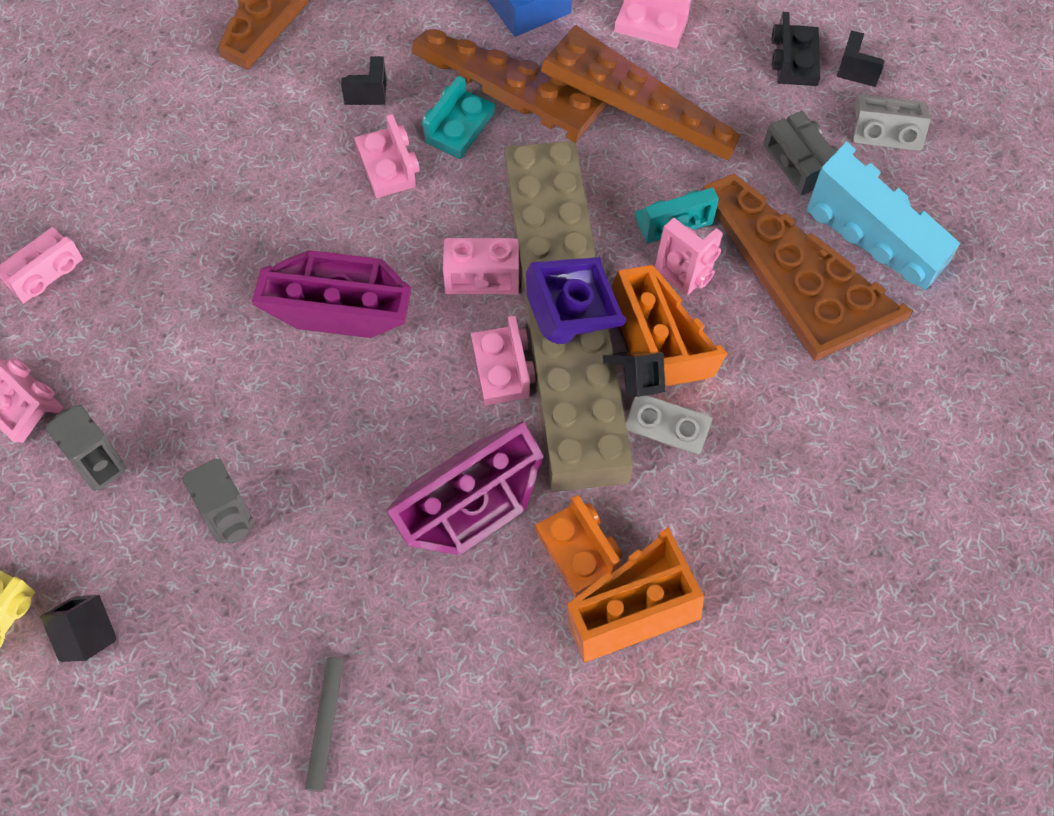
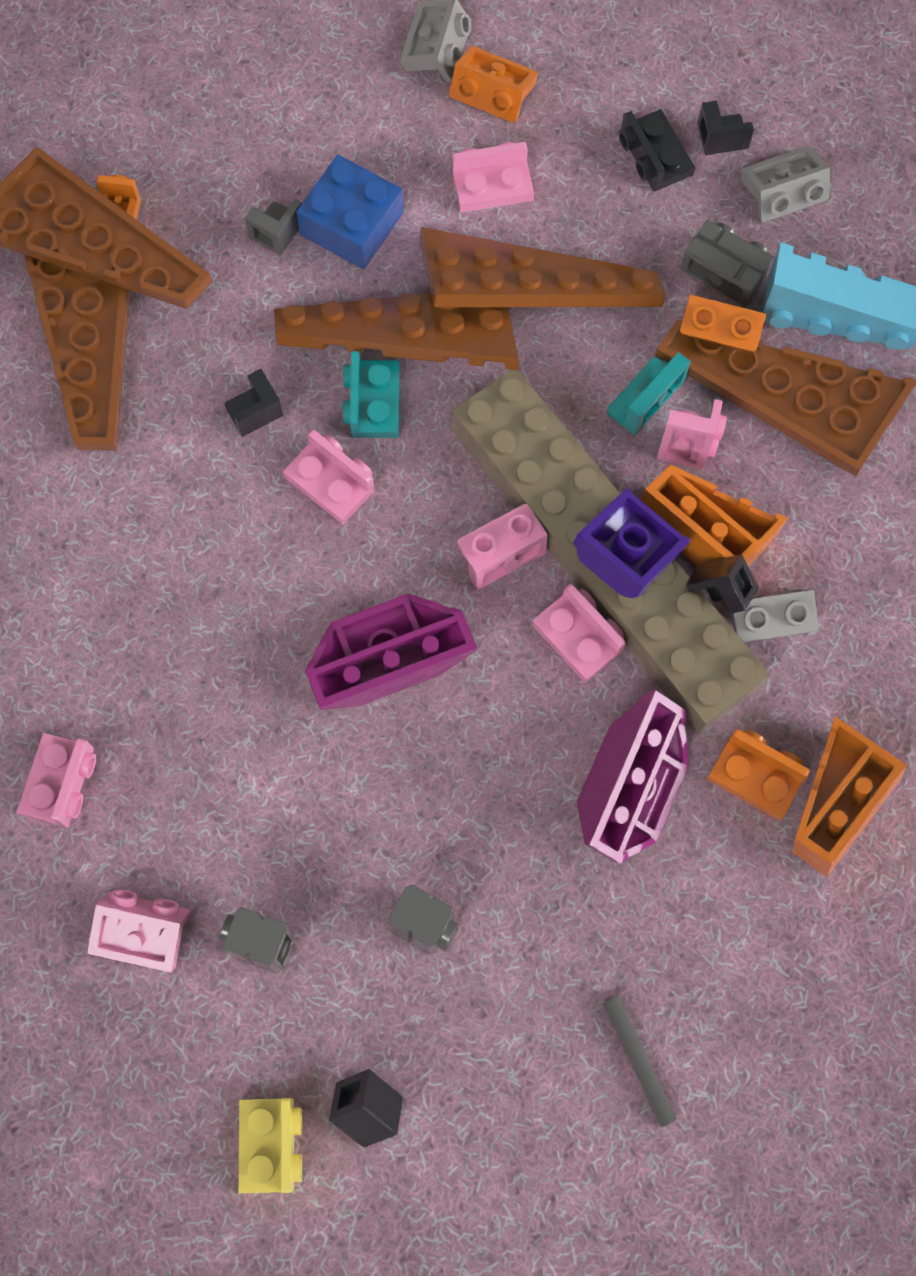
camera: 30 degrees left, 10 degrees up
(768, 190) = (722, 323): none -> orange bracket

